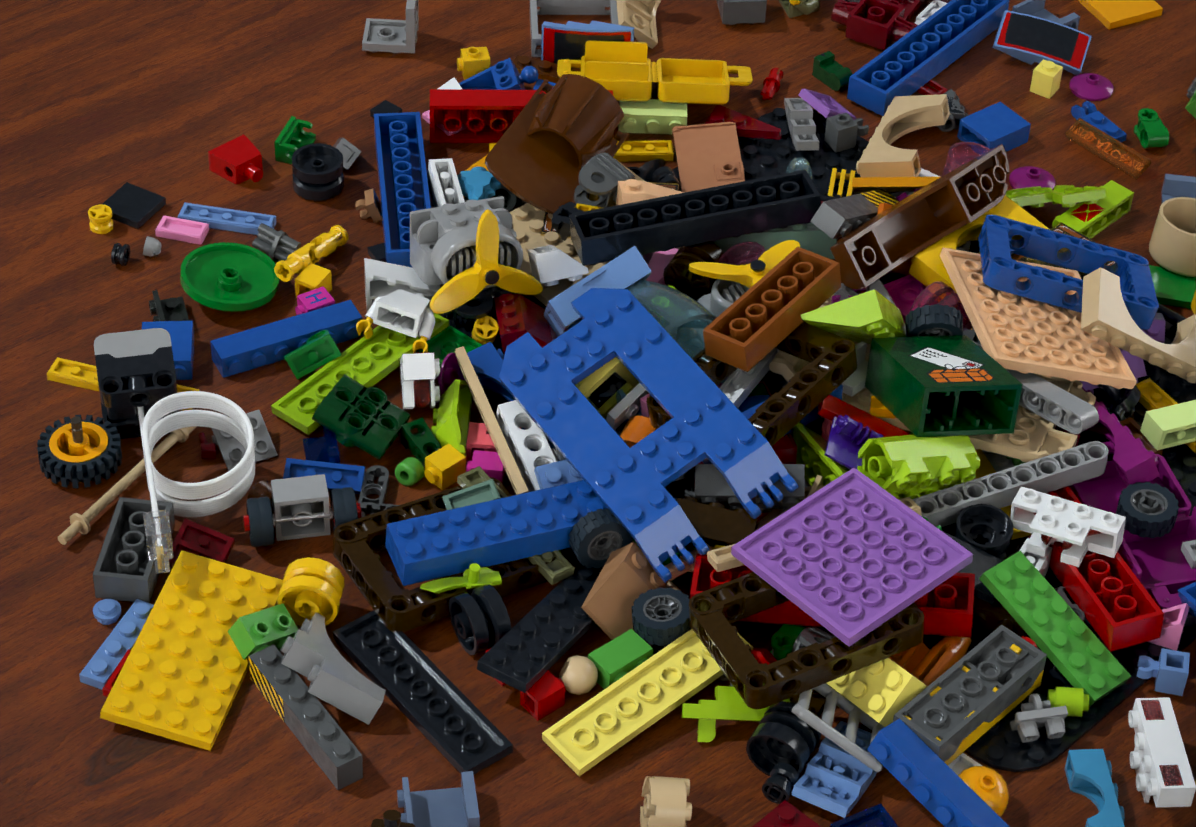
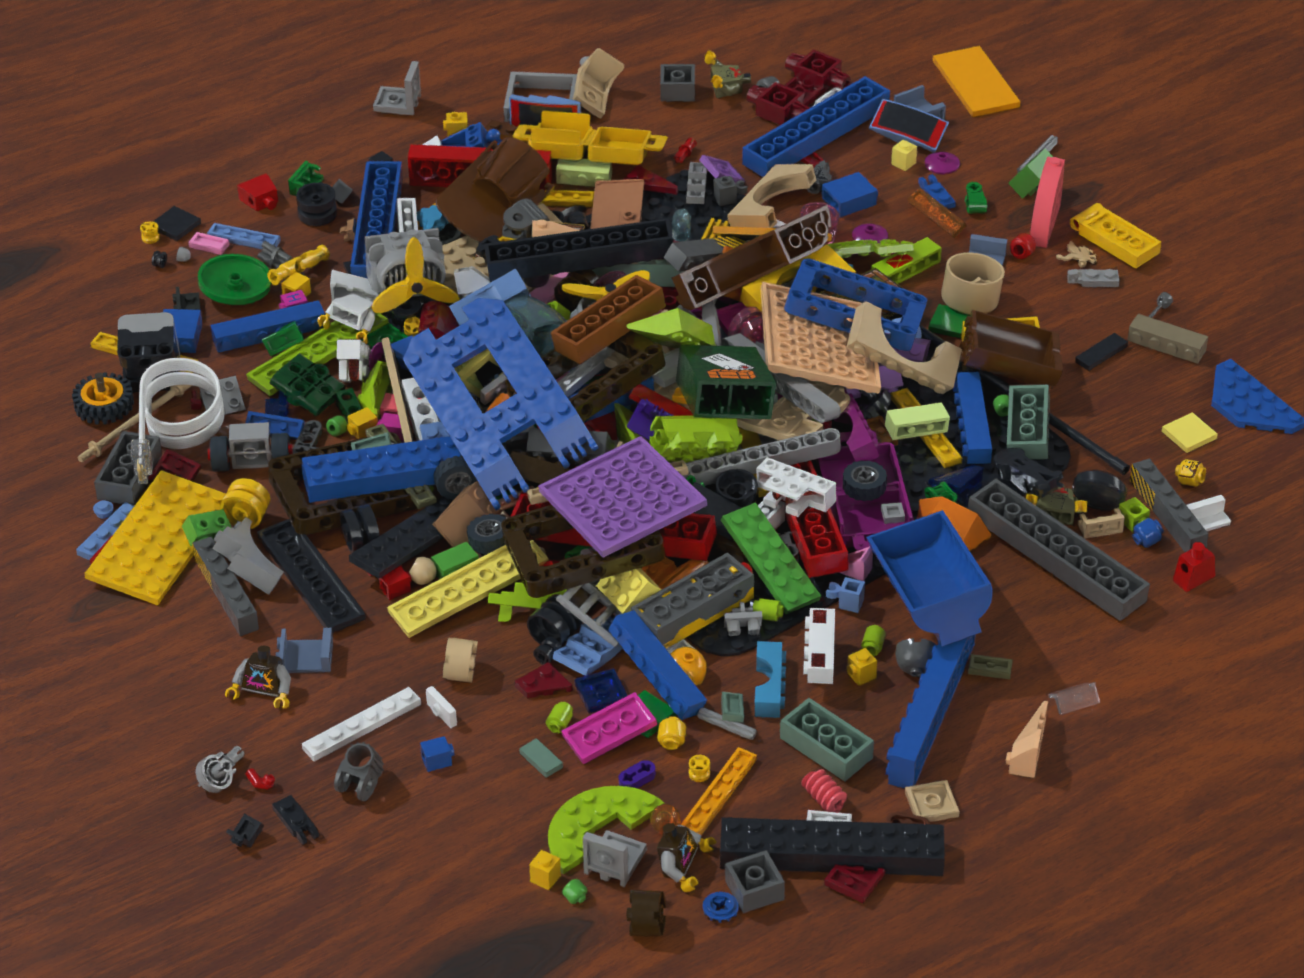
camera: 10 degrees right, 0 degrees up
(472, 578) = (359, 499): lime piece -> none
(830, 71) = (733, 141): dark green leg -> none
(934, 321) = (733, 335): black wheel -> none

